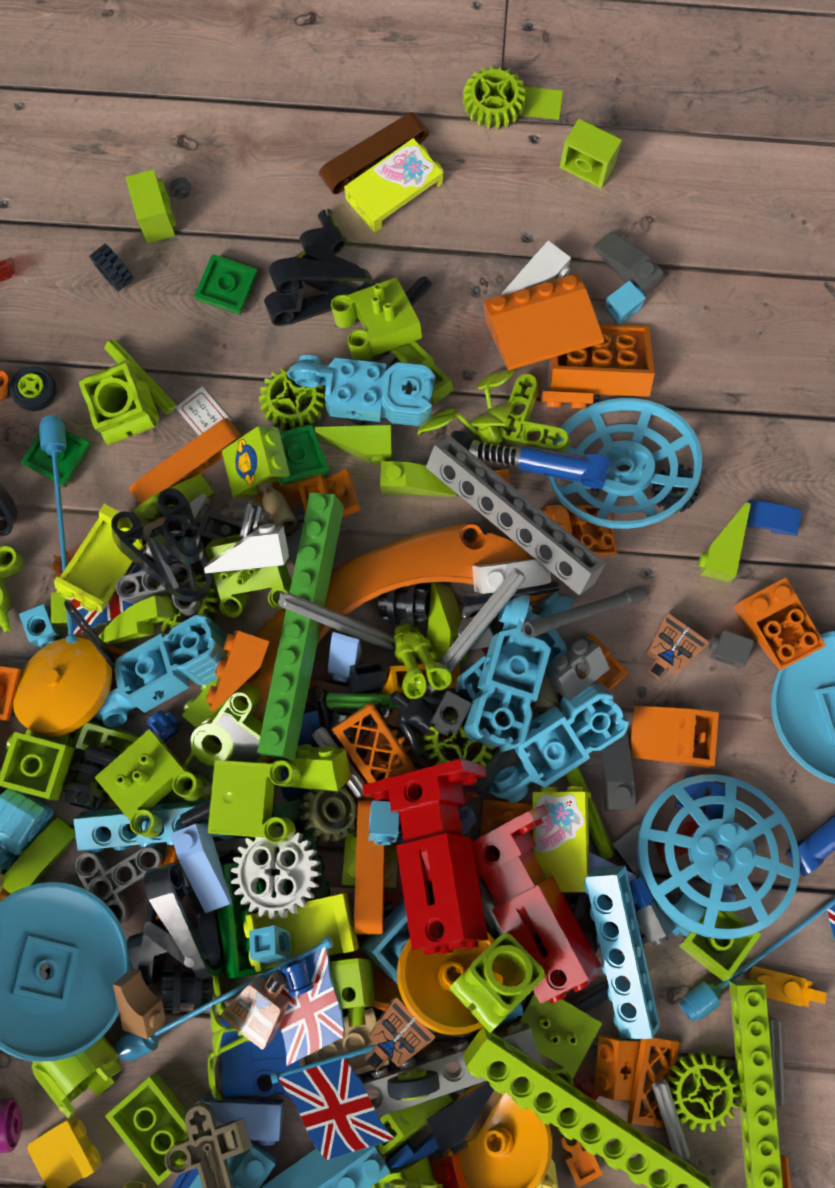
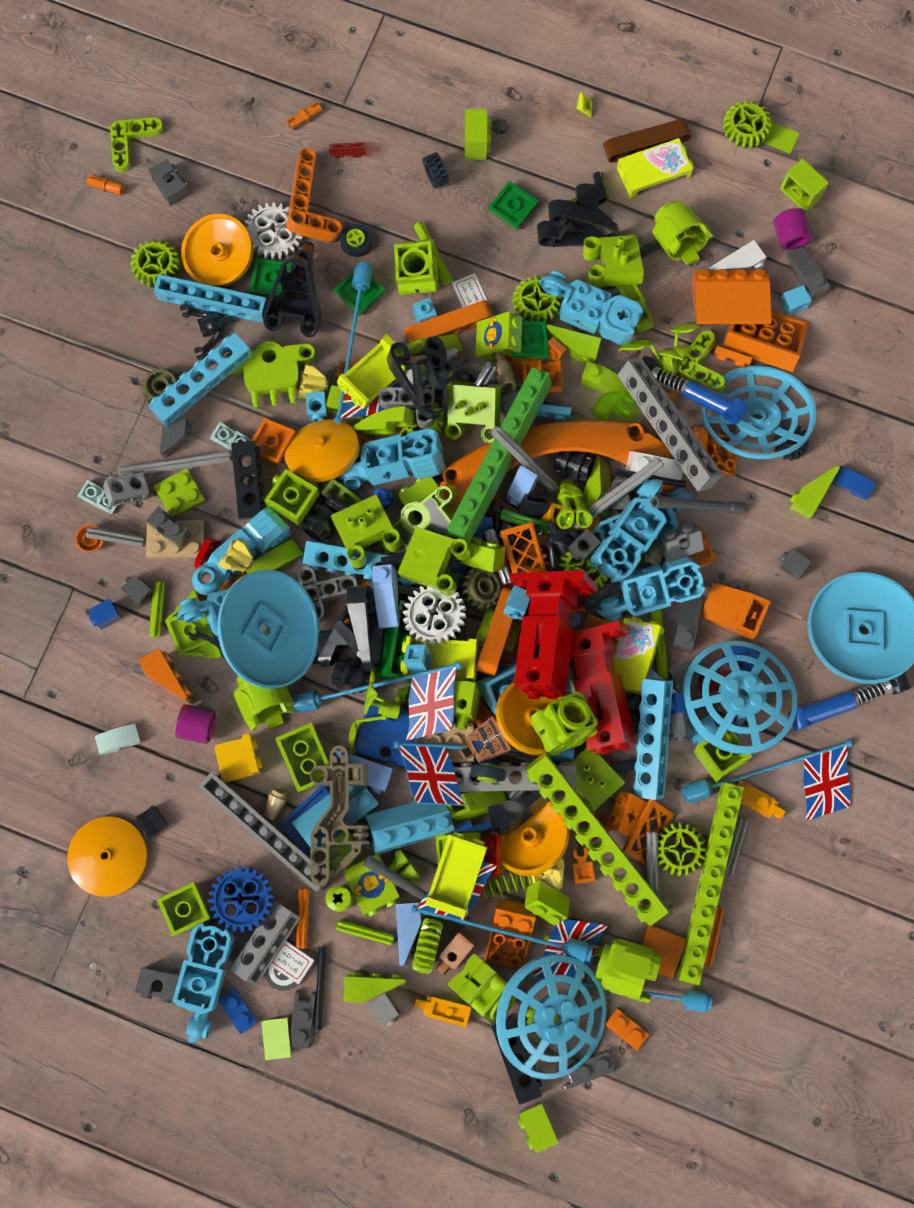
camera: 15 degrees right, 0 degrees up
(24, 594) = (311, 381): none -> light yellow brick
(68, 605) = (353, 420): black piece -> none
(138, 1007) = (316, 677): medium nougat arch -> none
(147, 455) = (424, 310): none -> medium azure brick
(241, 662) = (455, 463): orange slope -> none
(259, 549) = (487, 394): white slope -> none
(259, 1009) = (400, 695): nougat torso -> none
(281, 130) = (584, 104): none -> neon yellow slope
(297, 977) = (431, 680): blue bush -> none
(335, 457) = (556, 350): none -> orange plate
(365, 540) = (554, 412): none -> medium azure plate
(428, 506) = (610, 403): none -> clear neon green brick
(452, 256) = (681, 231): none -> lime piece
(593, 212) = (792, 229): none -> magenta piece
(673, 647) = (754, 551): nougat torso -> none
(779, 624) = (833, 555): orange slope -> none

